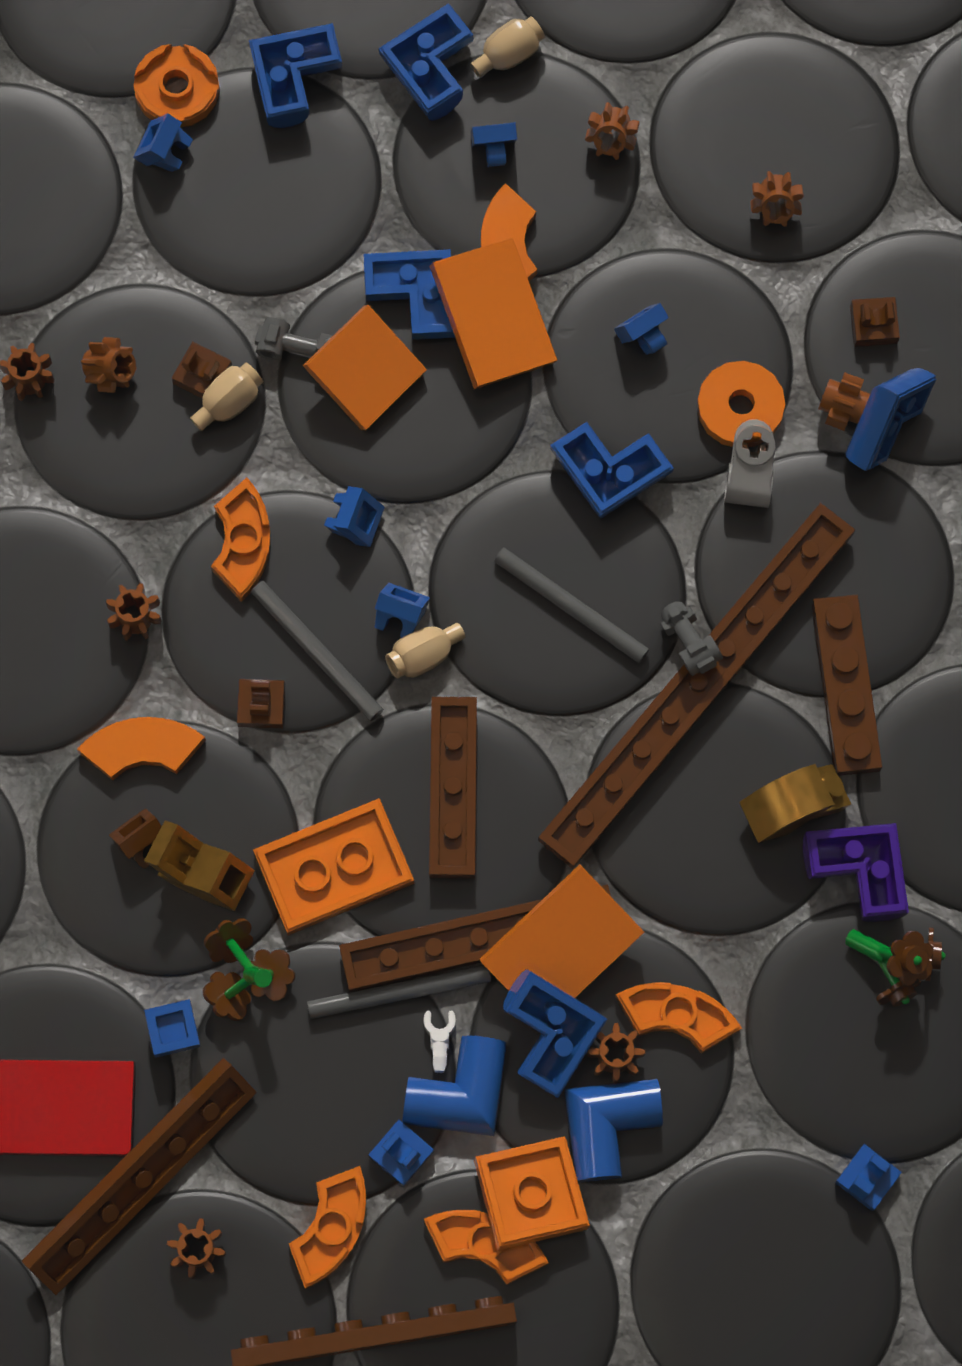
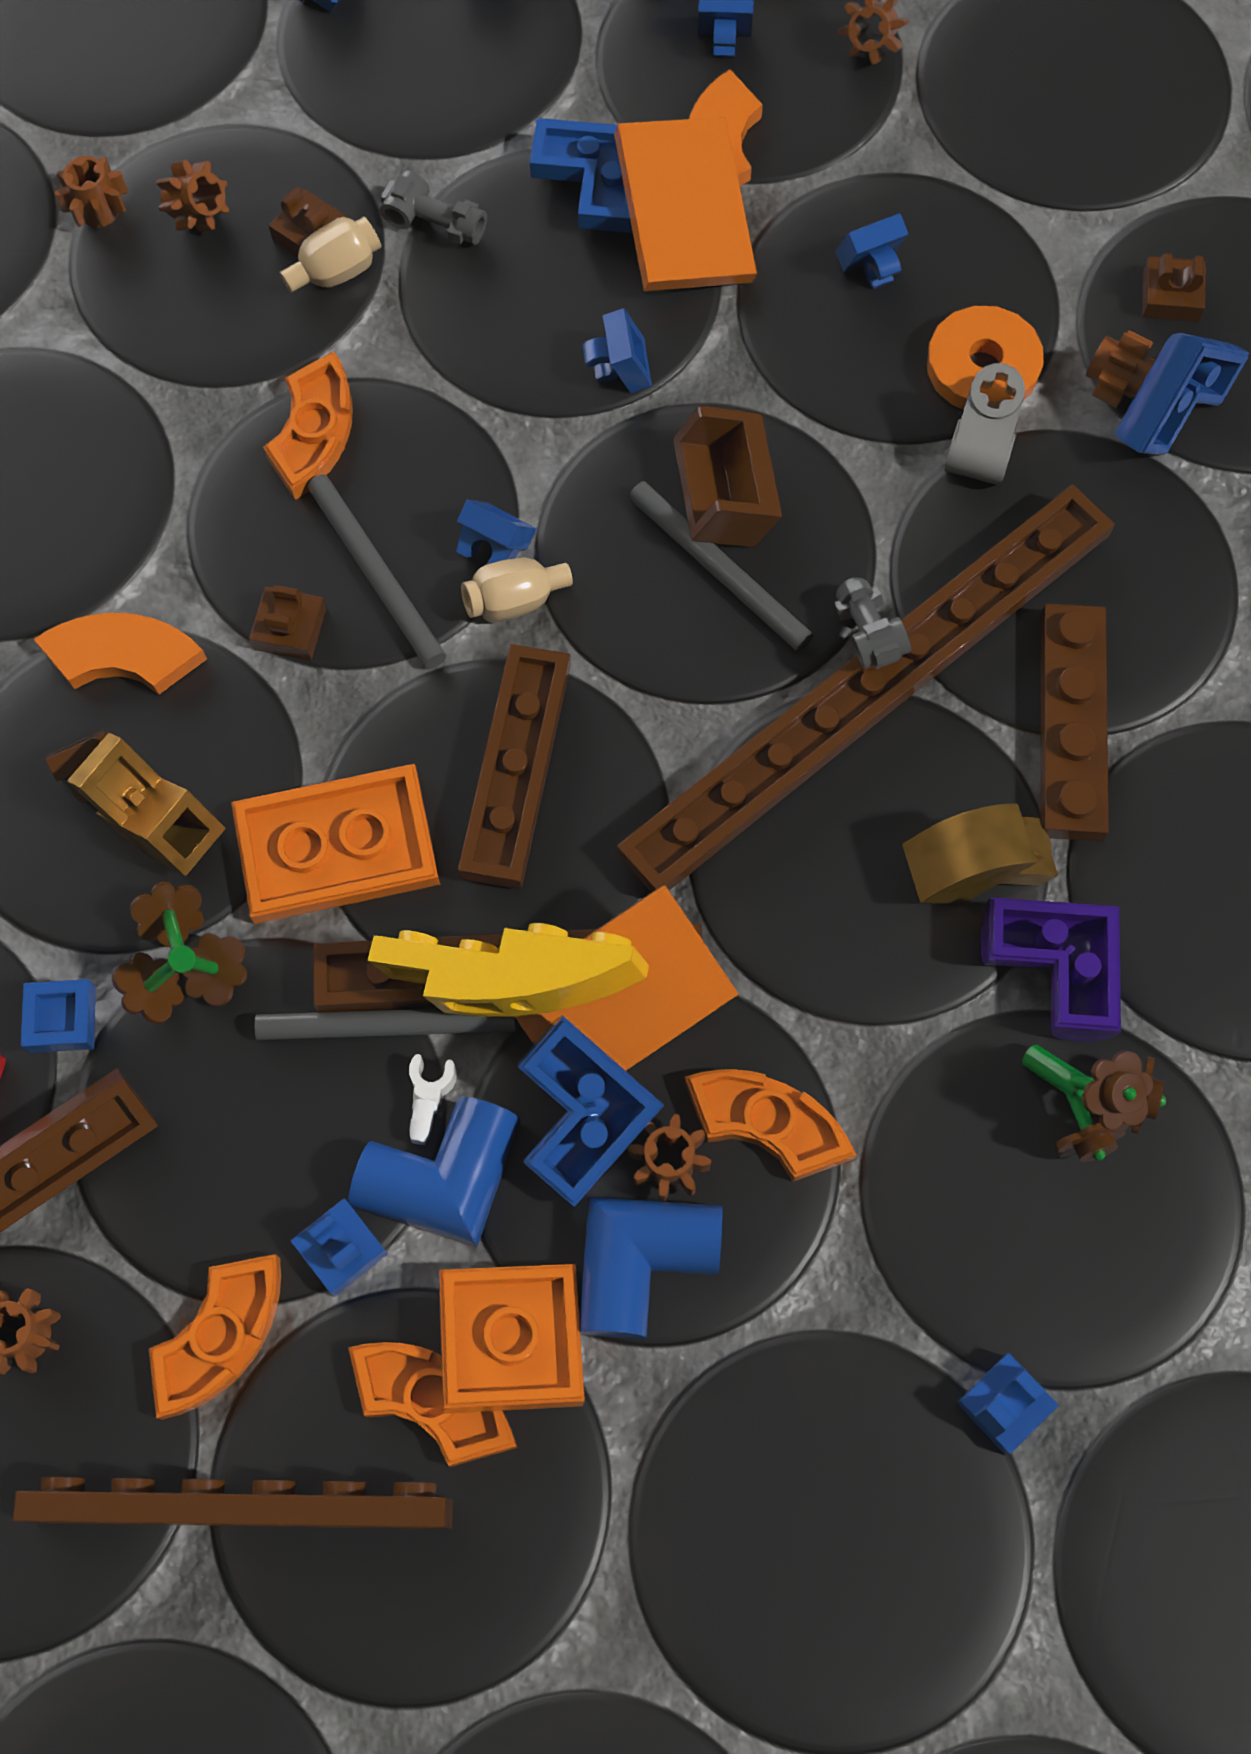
camera: 15 degrees right, 5 degrees down
(141, 602) = (149, 483): dark orange gear -> none
(357, 516) = (461, 414): blue tile -> none
(364, 367) = (509, 243): orange tile -> none
(467, 446) = (619, 353): none -> blue tile
(503, 944) = (526, 976): none -> yellow slope
(566, 539) = (727, 477): none -> reddish brown panel
(609, 479) = (799, 416): blue brick -> none
(777, 198) = (1071, 143): dark orange gear -> none

